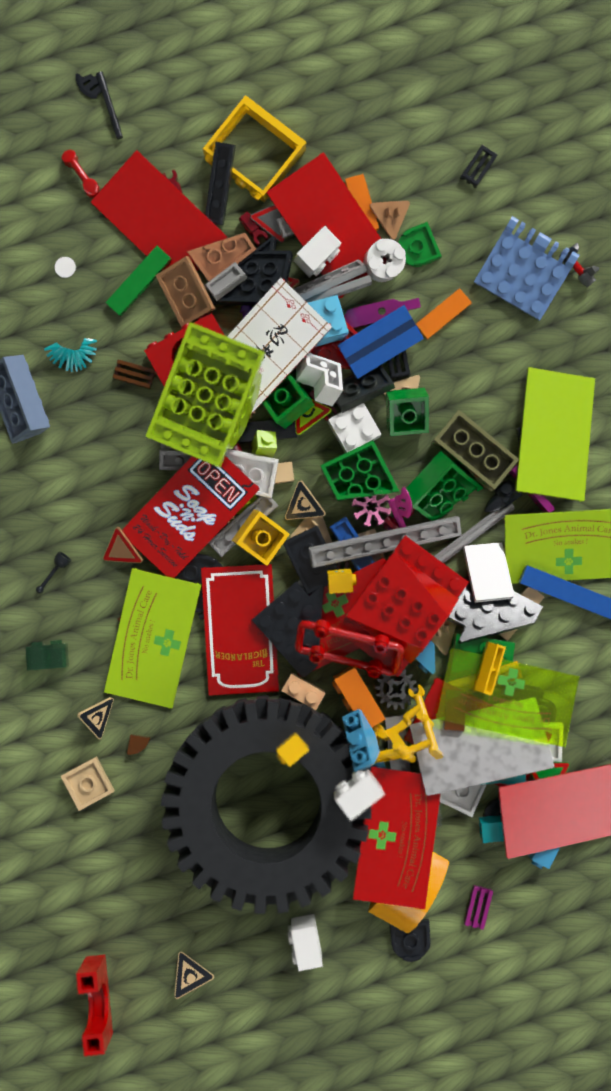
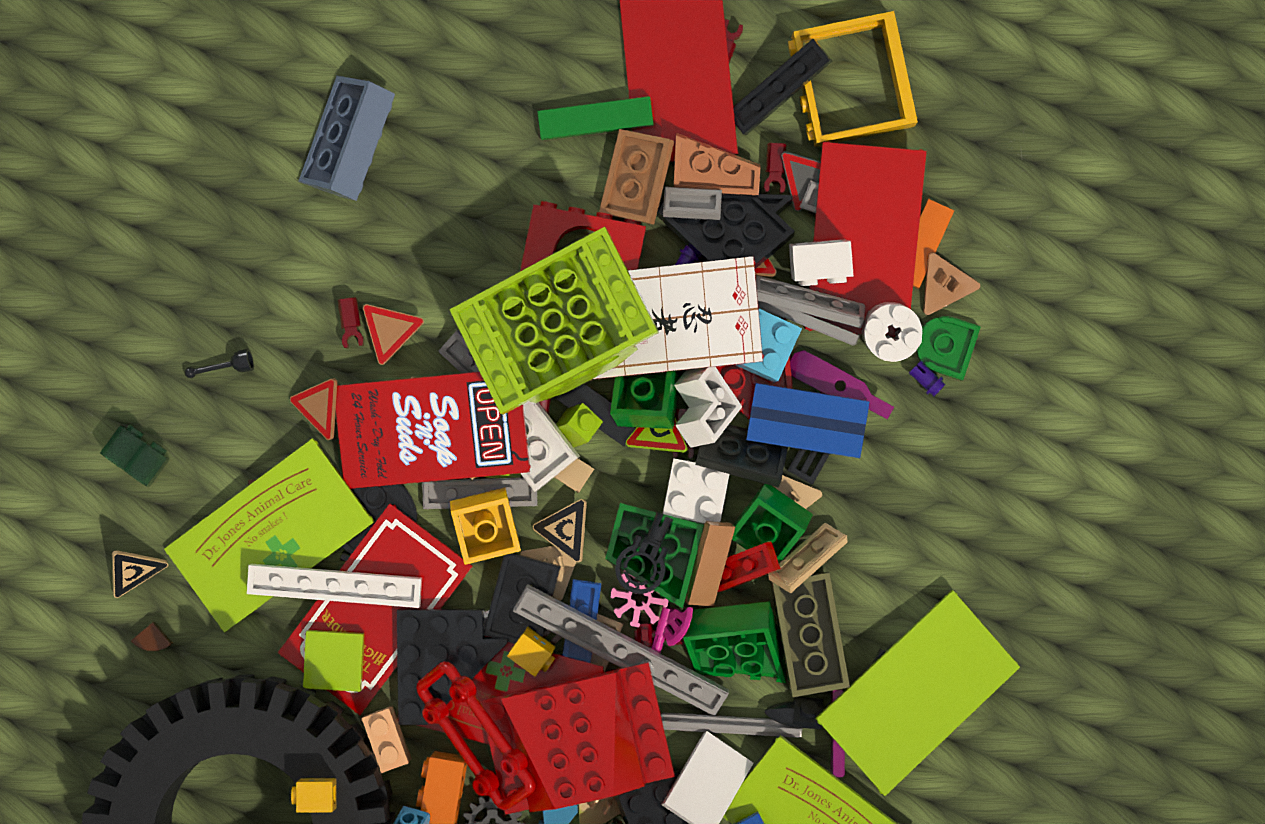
camera: 50 degrees right, 0 degrees up
(65, 267) = (527, 31): white sticker -> none
(72, 357) = (448, 139): teal hair -> none
(87, 783) = (59, 635): tan plate -> none
(99, 492) = (350, 320): none -> dark red bar
(118, 369) = (488, 199): reddish brown tile -> none
(124, 479) = (389, 330): none -> piece
(208, 634) = (334, 585): none -> white plate
(241, 674) = (333, 660): none -> lime tile
(354, 466) = (655, 538): none -> black pin
(393, 456) = (709, 563): none -> medium nougat tile
(410, 447) = (749, 565): none -> red plate
(422, 271) = (927, 378): none -> dark purple pin
(440, 412) = (808, 557): none -> tan tile
(443, 314) = (909, 447): orange tile -> none
(470, 179) = (1070, 319): black tile -> none
(524, 272) = (1040, 478): medium blue hinge -> none
(586, 275) = (1109, 541): dark grey piece -> none

